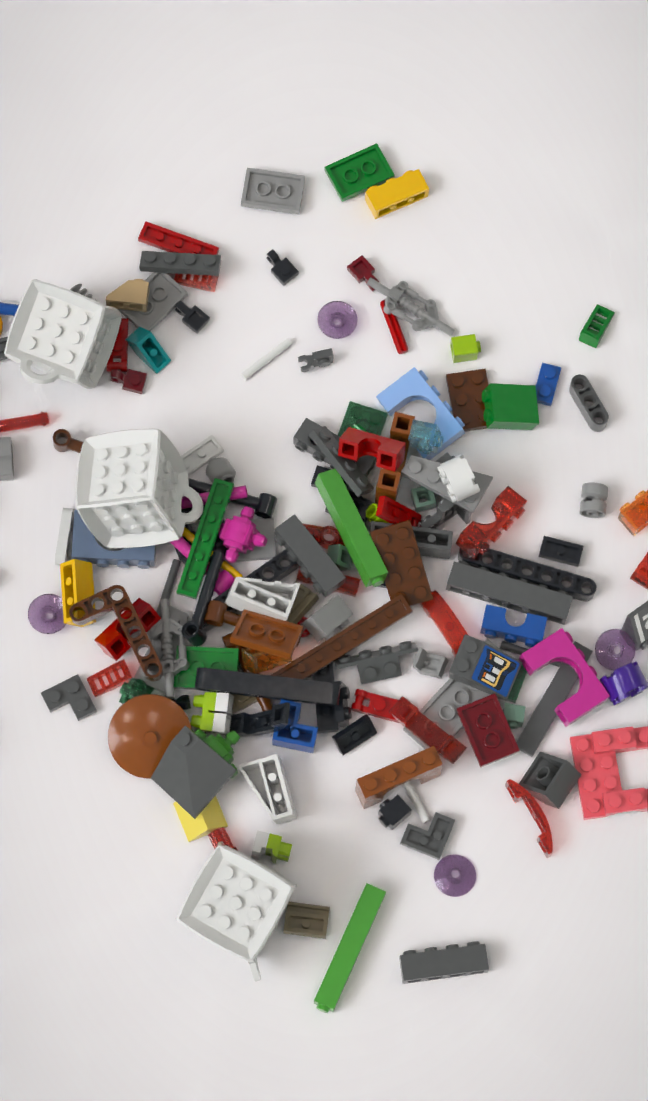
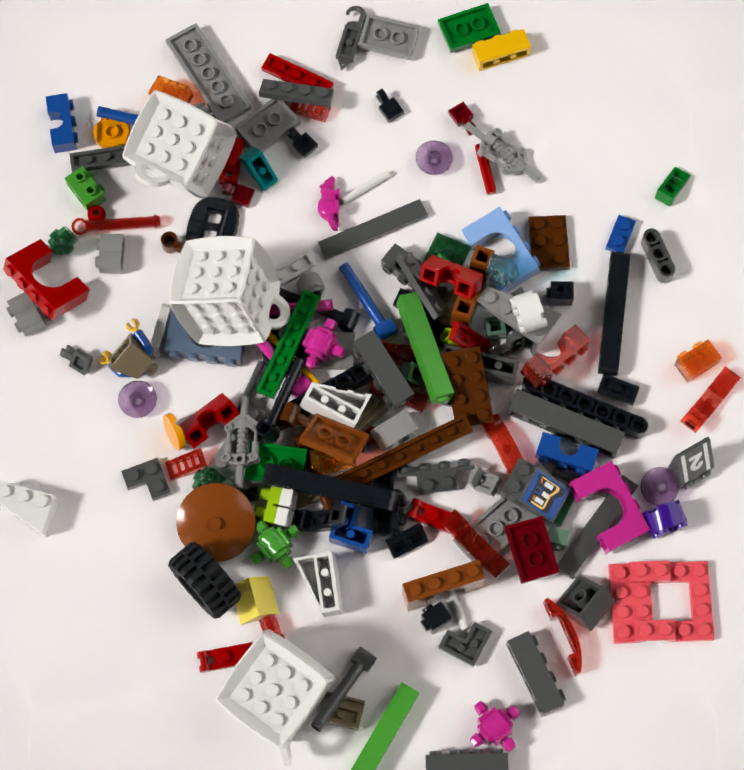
camera: 10 degrees right, 0 degrees up
(38, 568) = (132, 356): none -> dark tan torso
(42, 271) = (172, 88): none -> clear orange brick
(76, 585) = (166, 382): yellow brick -> none
(78, 249) = (208, 74): none -> light grey plate
(91, 415) = (199, 218): none -> black piece
(94, 646) = (174, 431): none -> light orange tile
(126, 624) = (206, 416): reddish brown beam -> none
(130, 296) = (247, 117): tan slope -> none
(146, 798) = (204, 580): none -> black tyre
(174, 878) = (223, 657): none -> red plate
(192, 772) = (251, 559): dark grey slope -> none
(229, 381) = (328, 204): none -> dark pink animal
(231, 196) = (350, 38): none -> dark grey plate
(270, 845) = (315, 636): lime hips -> none
(280, 404) = (373, 229): none -> dark grey tile
(303, 509) = (384, 327): none -> blue piece
(319, 358) = (414, 191): dark grey plate -> none
(322, 866) = (362, 661): none -> dark grey piece
(447, 883) = (483, 693): clear purple dish -> none
(464, 348) = (548, 194): lime brick -> none
(468, 918) = (495, 726): none -> dark pink piece
(489, 454) = (560, 293): none -> black brick
(505, 859) = (535, 673): none -> dark grey brick
(510, 406) = (585, 251): green brick -> none
(548, 470) = (614, 313): none -> black beam
(594, 497) = (653, 345): light grey wheel -> none

